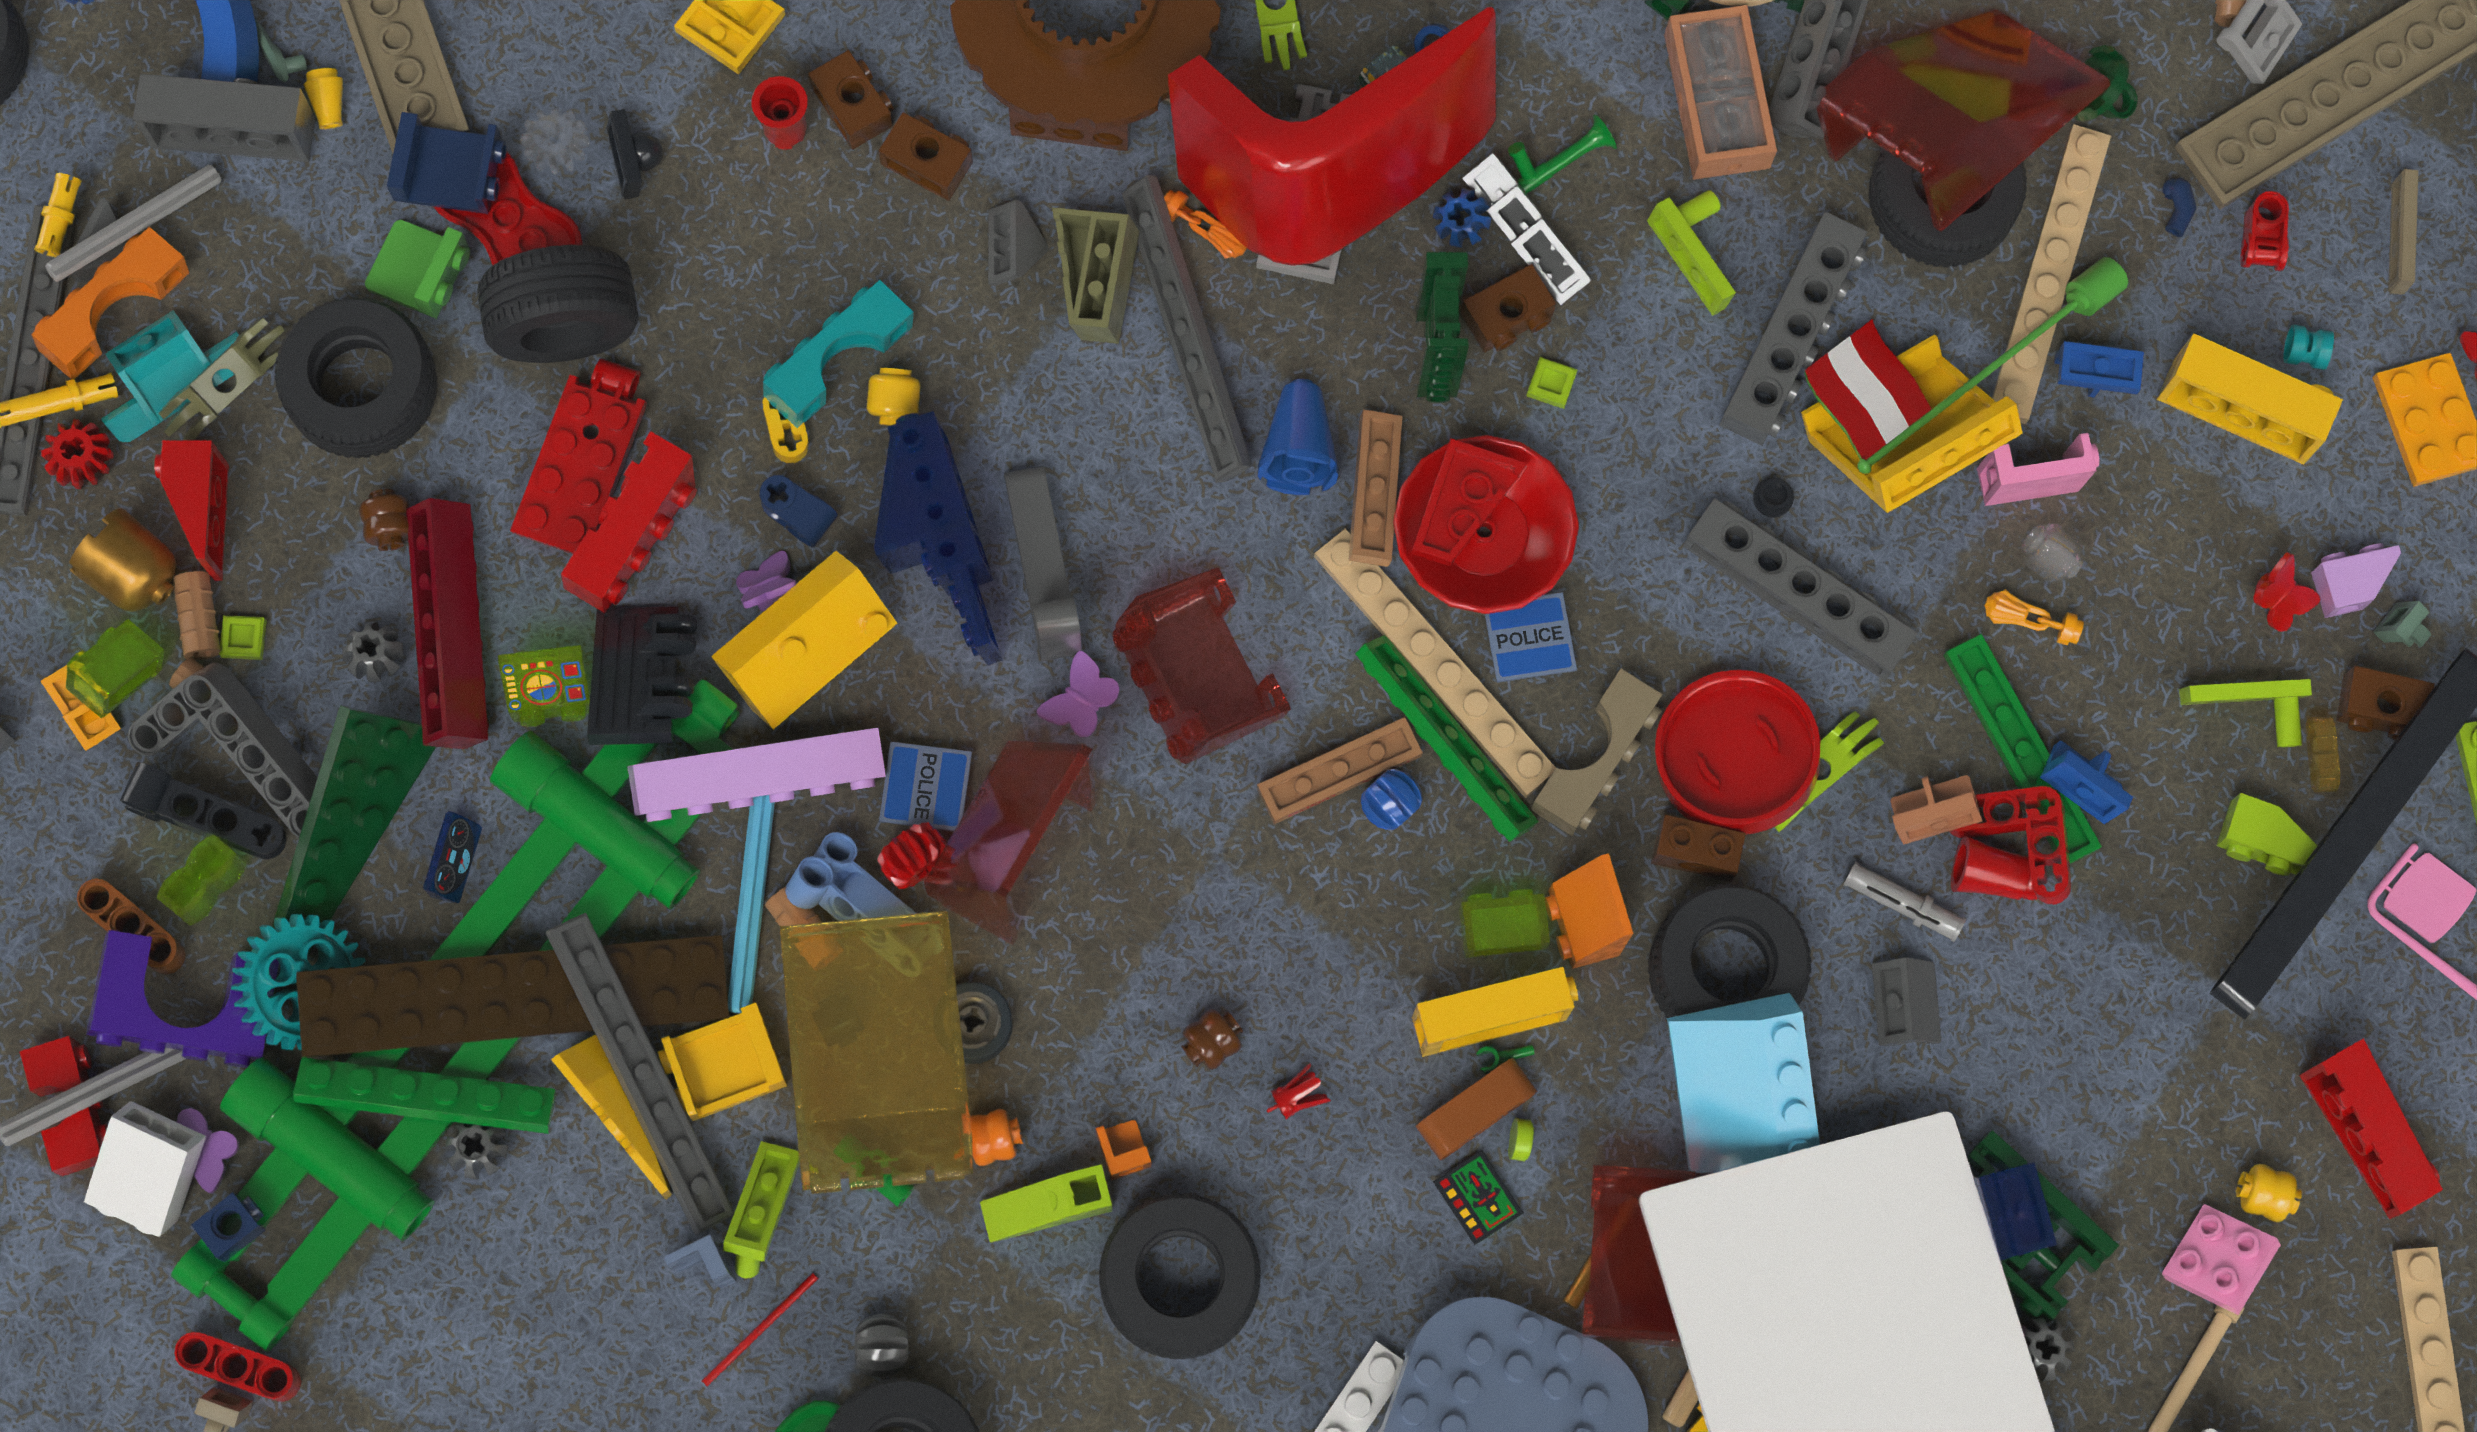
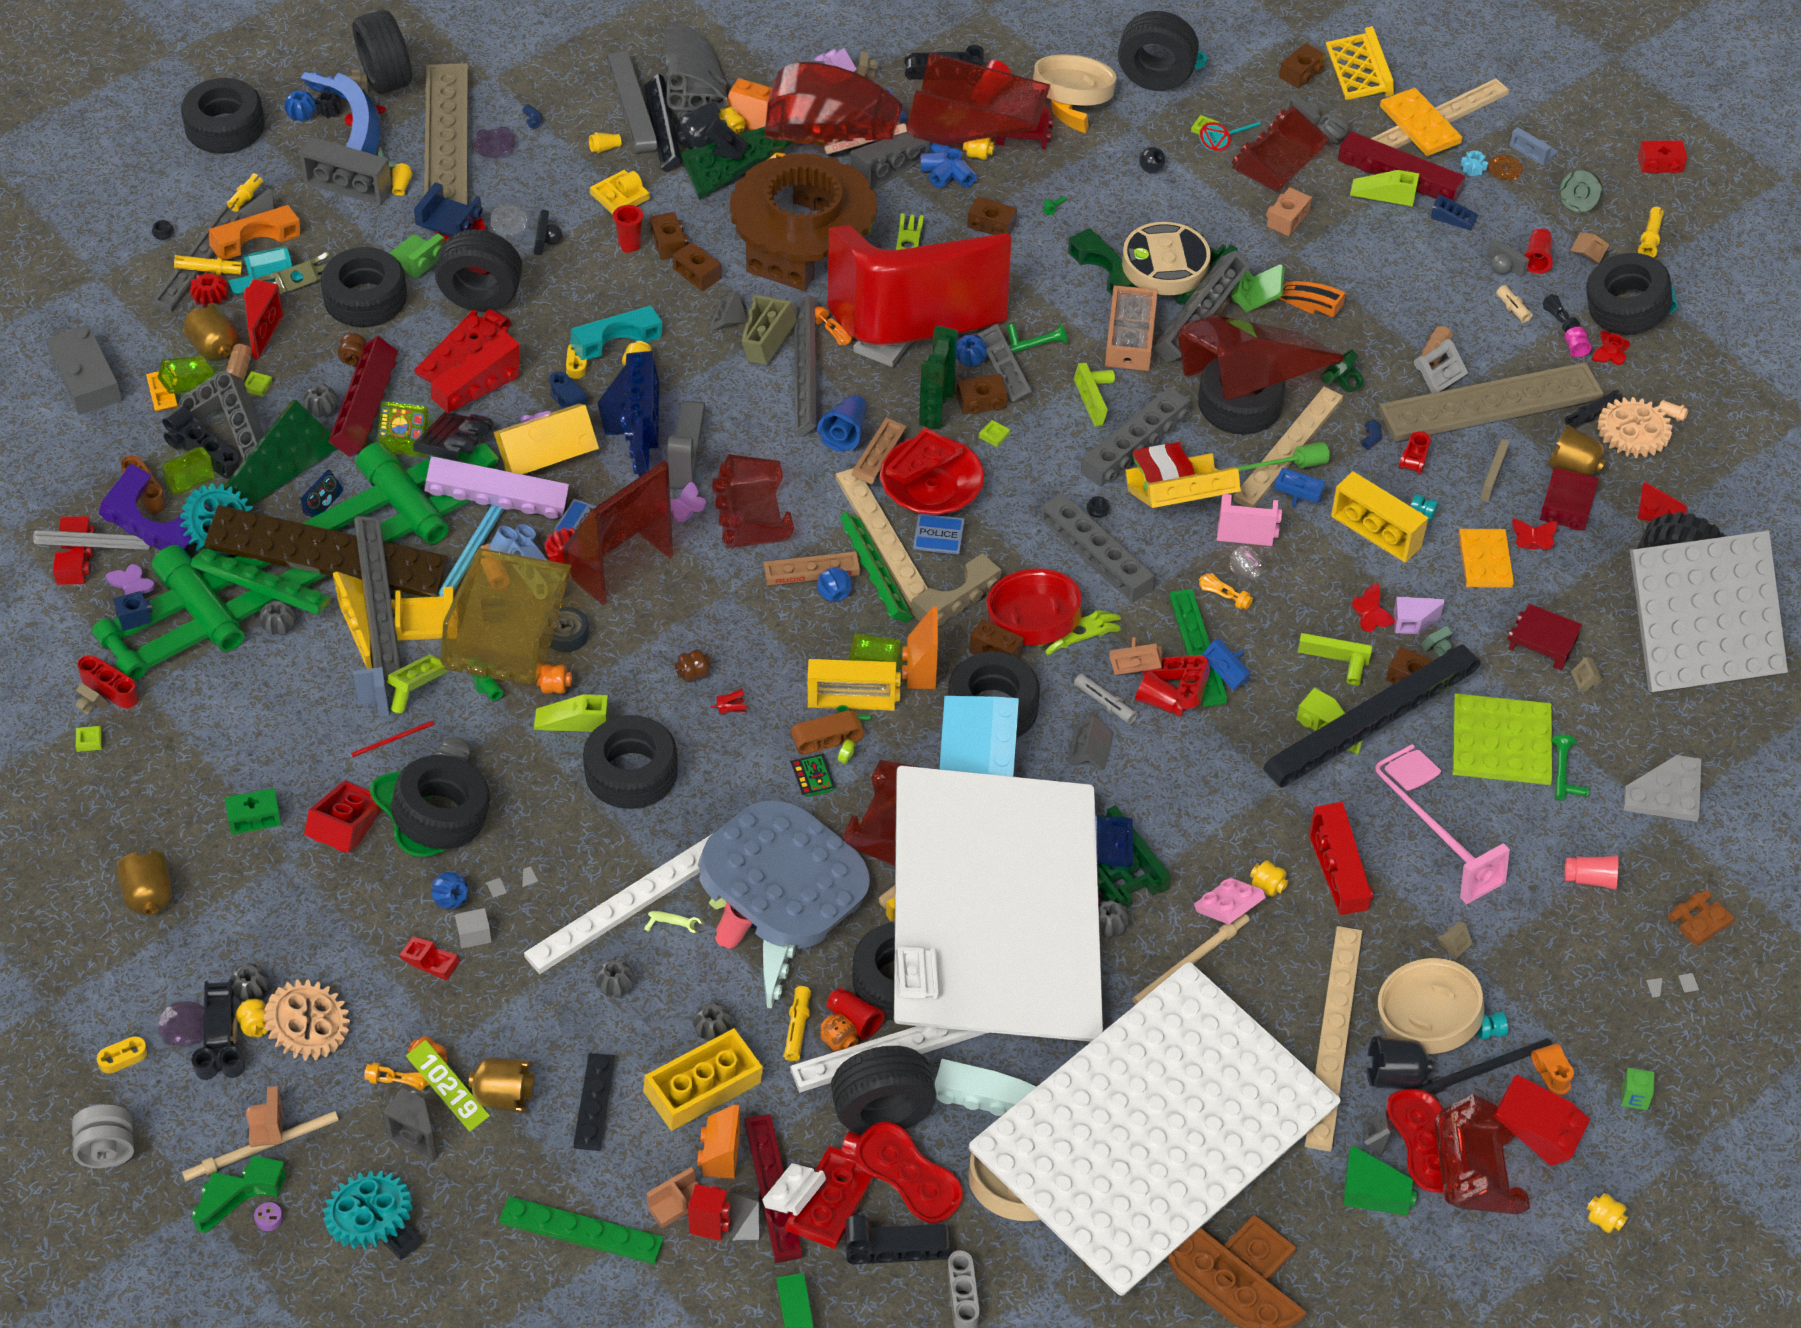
camera: 20 degrees right, 25 degrees down
(133, 223) = (271, 203): light grey axle -> none
(144, 1169) = (99, 580): white brick -> none
(1123, 1149) = (623, 704): orange panel -> none
(2323, 754) = (1371, 684): clear yellow beam -> none

